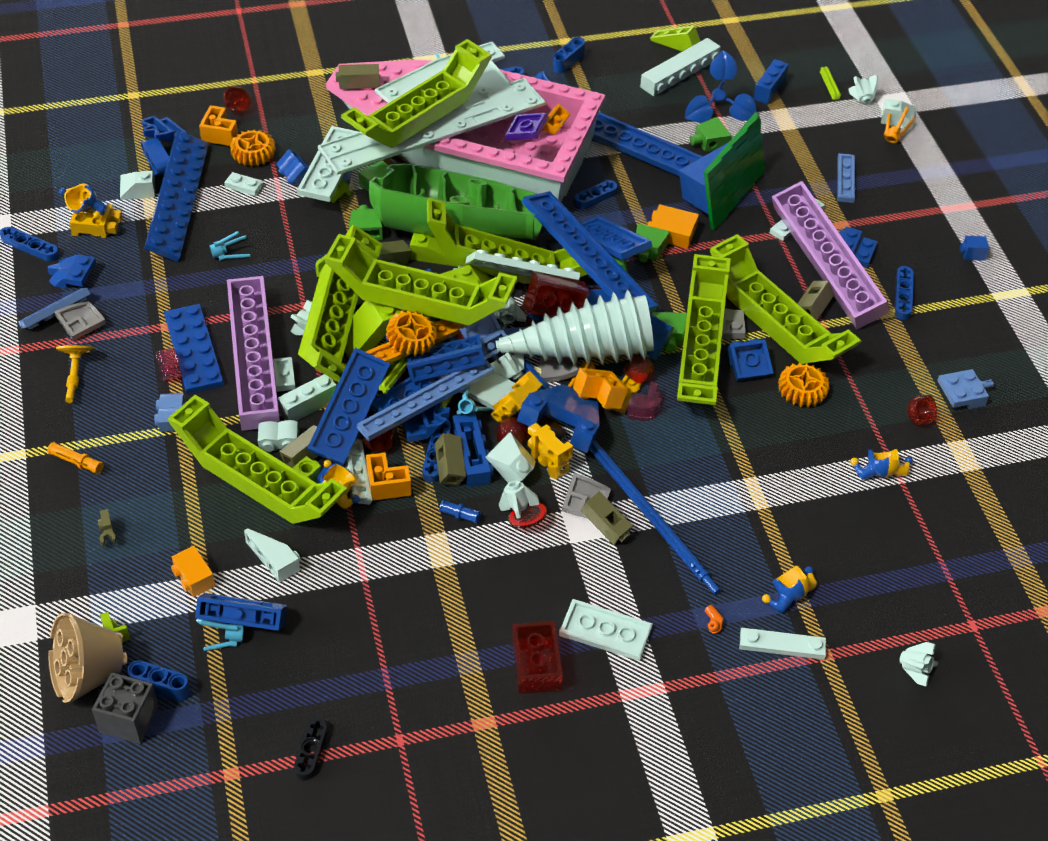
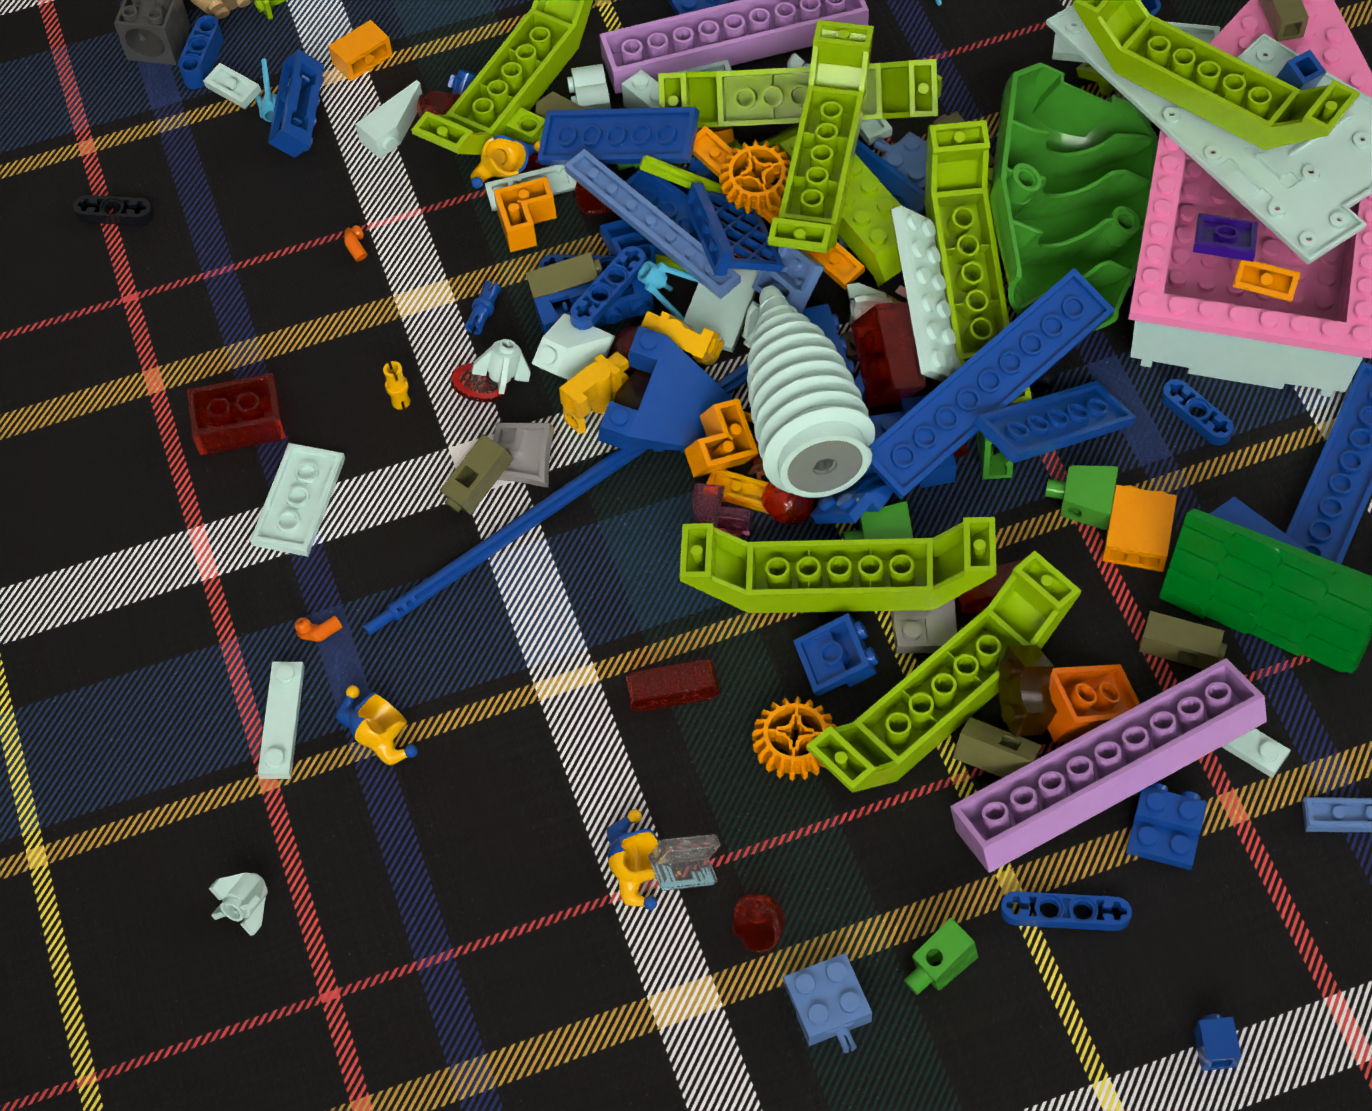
camera: 90 degrees right, 10 degrees up
(202, 660) = (232, 85): none -> light aqua plate
(251, 506) = (460, 81): none -> blue gear
(271, 521) = (436, 102): none -> clear red hair
(379, 586) = (351, 241): none -> orange arm
(420, 72) = (1302, 71): none -> blue brick
(491, 439) = (610, 289): none -> blue beam
(529, 556) = (396, 385): none -> yellow pin
(747, 221) = (1182, 641): none -> olive brick
(766, 436) = (672, 685): none -> clear red beam
(783, 265) = (1087, 699): none -> orange slope
(786, 279) = (1025, 690): none -> dark brown brick
(885, 437) = (684, 862): none -> clear panel
(939, 336) = (948, 946): none -> bright green torso

